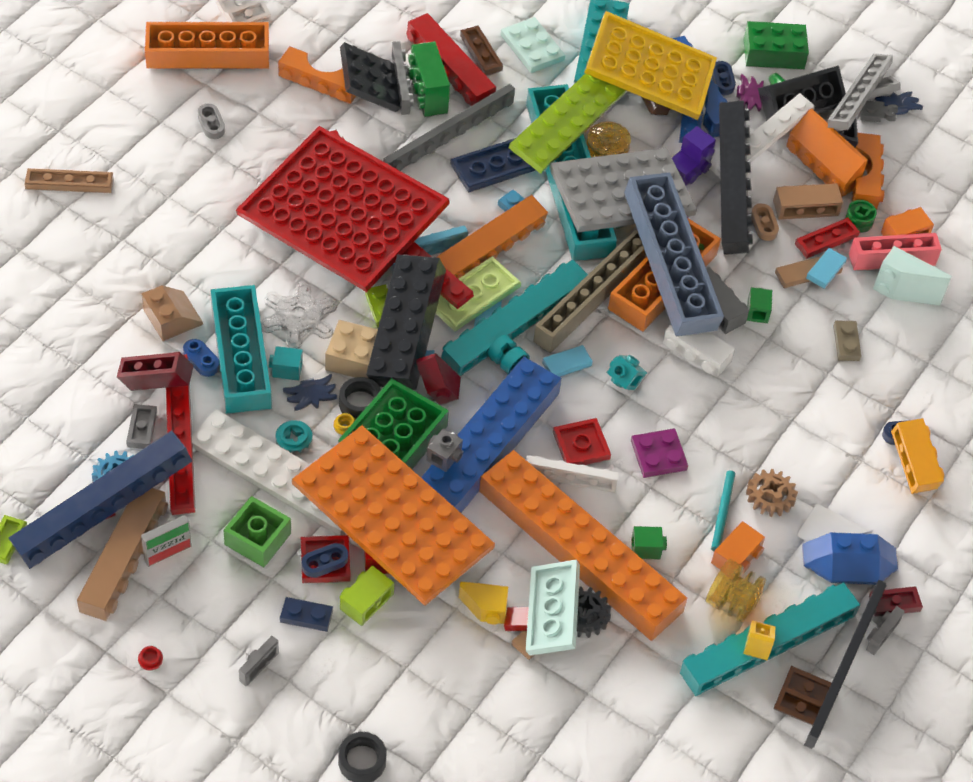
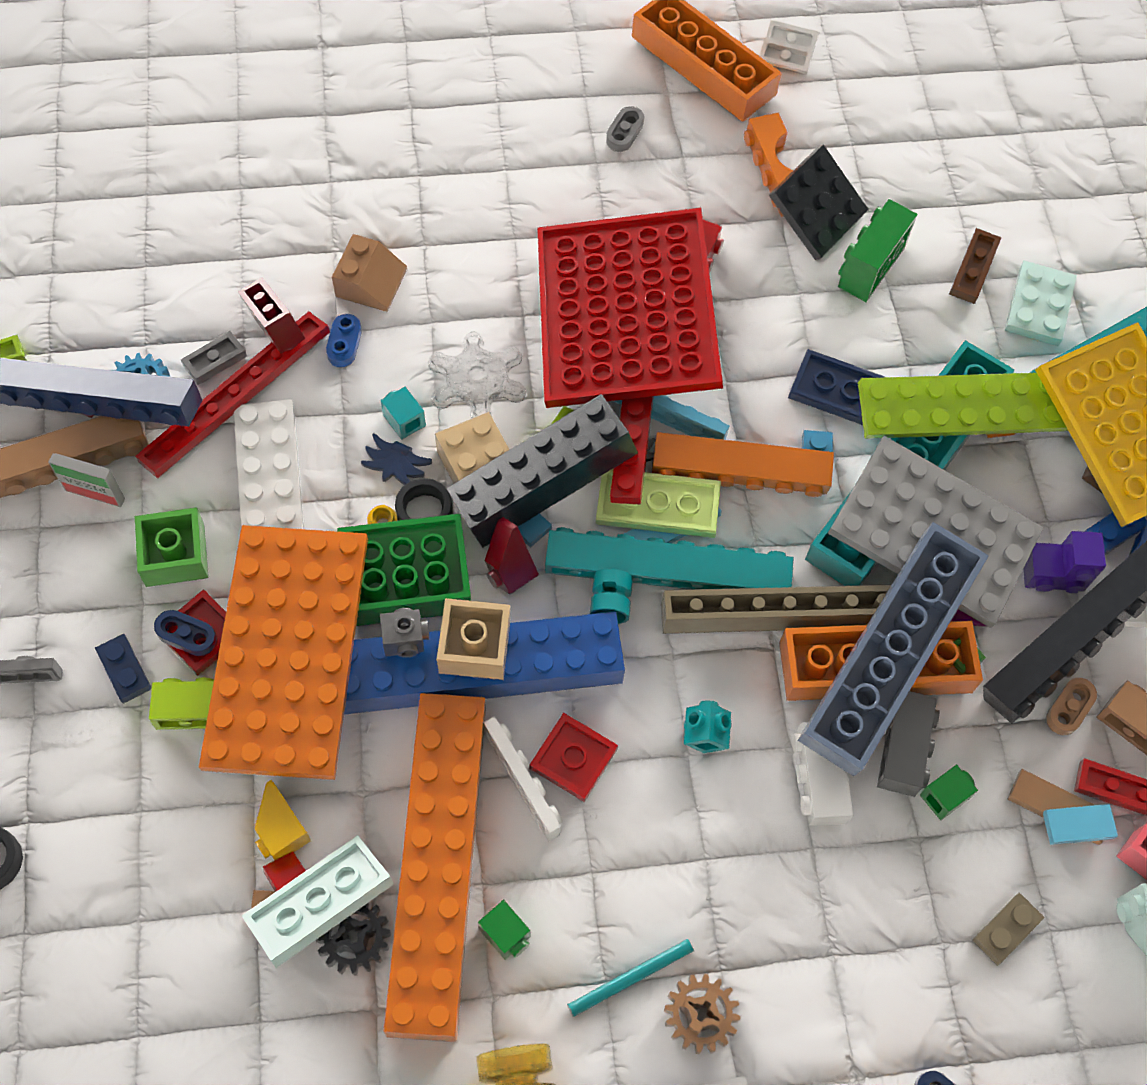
camera: 50 degrees right, 10 degrees up
(69, 180) = (440, 86): medium nougat tile -> none
(241, 349) = (375, 361): teal brick -> none
(299, 429) = (321, 477): teal gear -> none
(403, 83) = (835, 250): flat silver plate -> none
(451, 128) = (841, 318): dark grey plate -> none
(460, 69) = (928, 253): red brick -> none
(483, 420) = (473, 639): none -> tan brick
(568, 361) = (668, 658): medium azure tile -> none
(608, 139) = (986, 465): clear yellow wheel -> none
(659, 453) = (642, 846): magenta plate -> none
(740, 546) = (586, 1040): orange brick -> none

